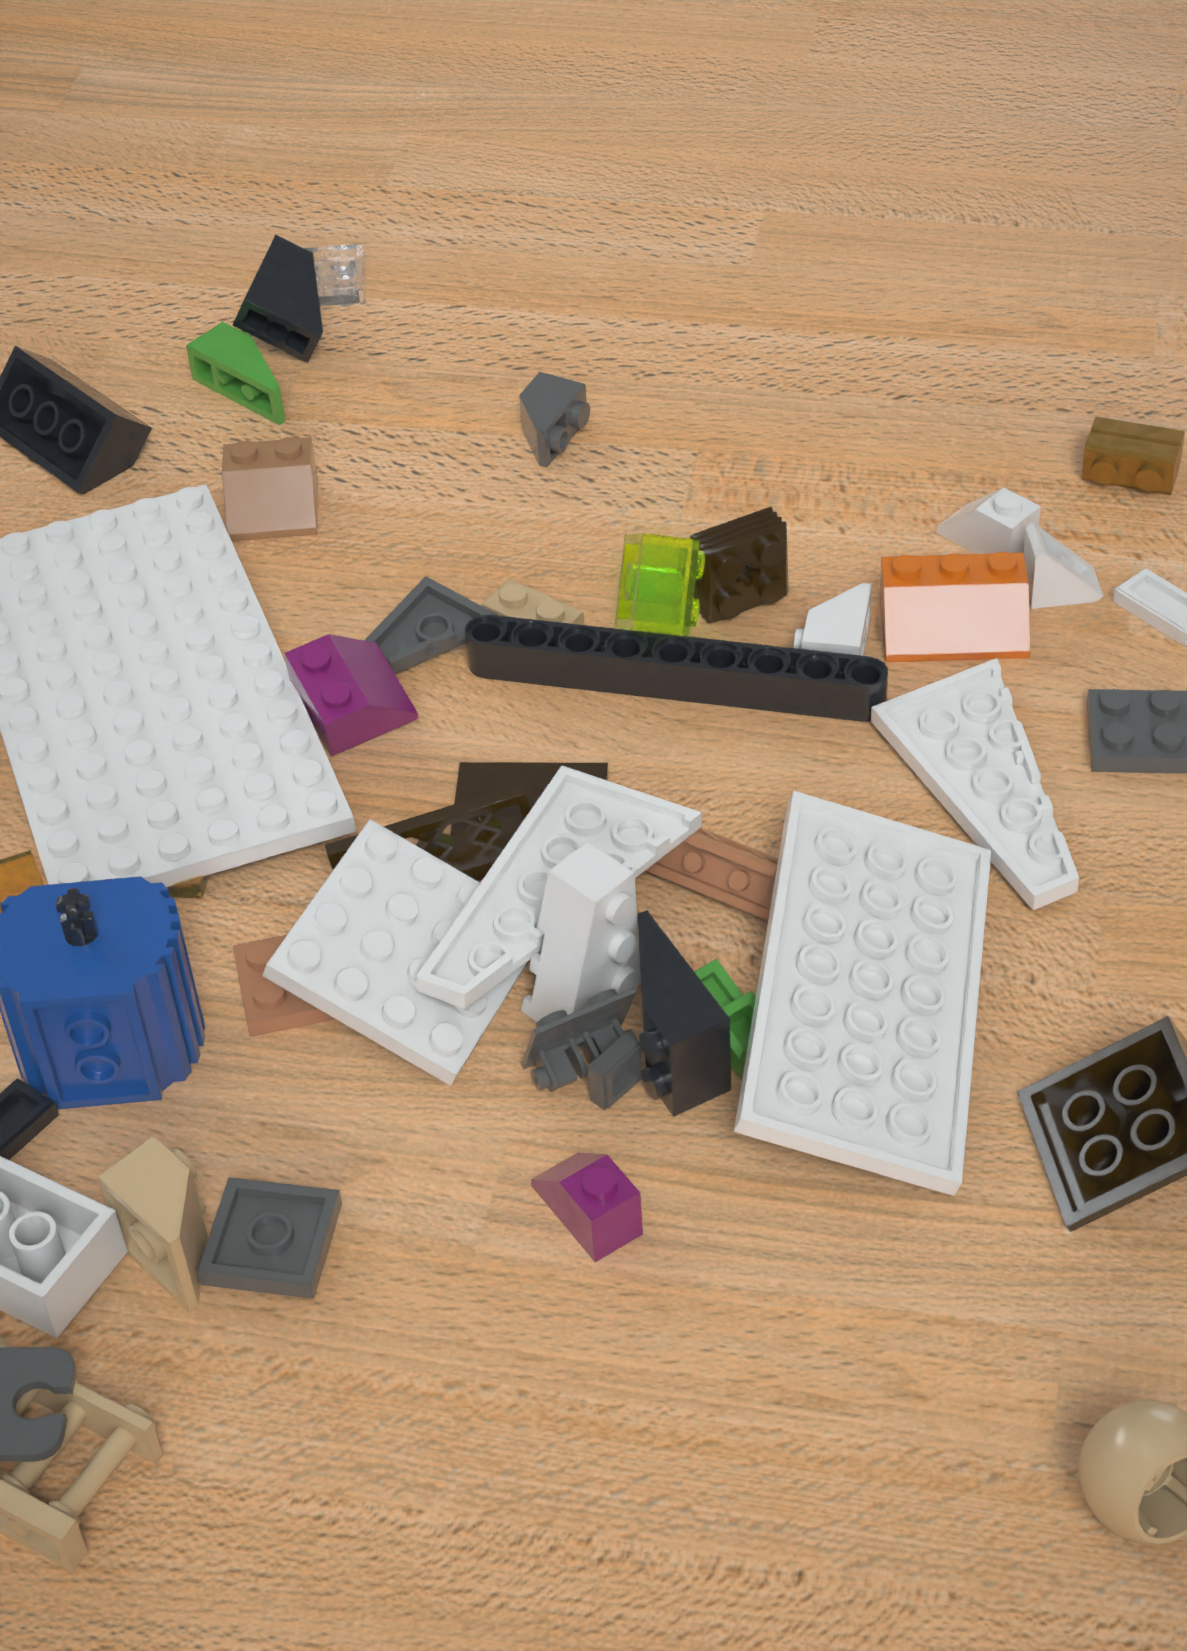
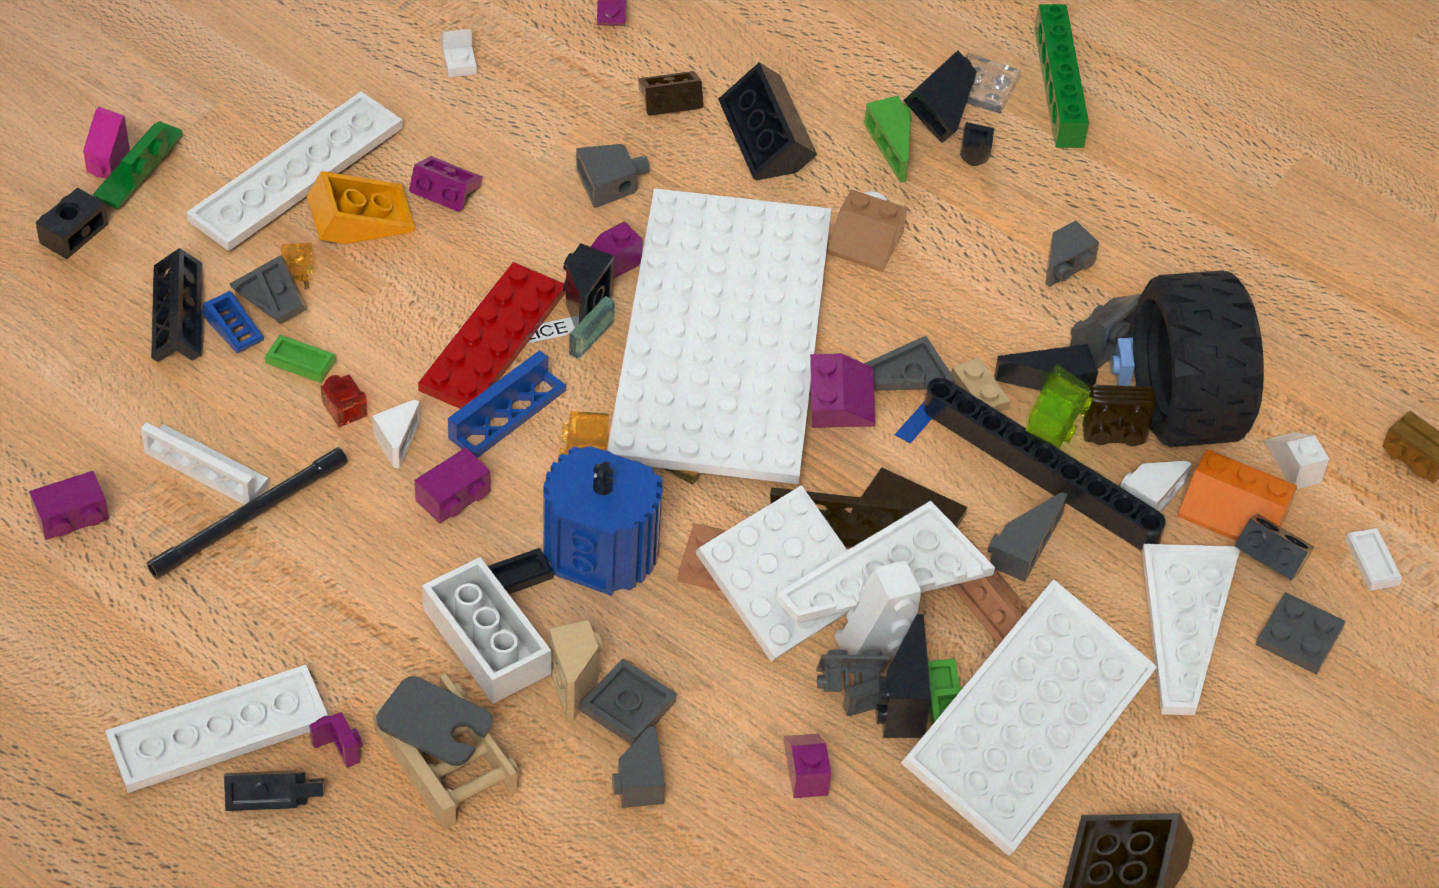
camera: 20 degrees right, 5 degrees up
(348, 1332) = (640, 773): none -> dark grey slope
(355, 342) = (976, 143): none -> black plate
(419, 232) = (1061, 76): none -> green brick
(469, 696) = (914, 425): none -> blue sticker
(596, 558) = (1034, 367): none -> black slope
(658, 477) = (1105, 327): none -> dark grey slope
(703, 499) = (1122, 361): none -> light blue bracket
(711, 766) = (1025, 538): none -> dark grey slope
(821, 433) = (1201, 355): none -> black tyre
(1042, 637) = (1274, 546): none -> black brick
(1056, 572) = (1318, 506): white slope -> none

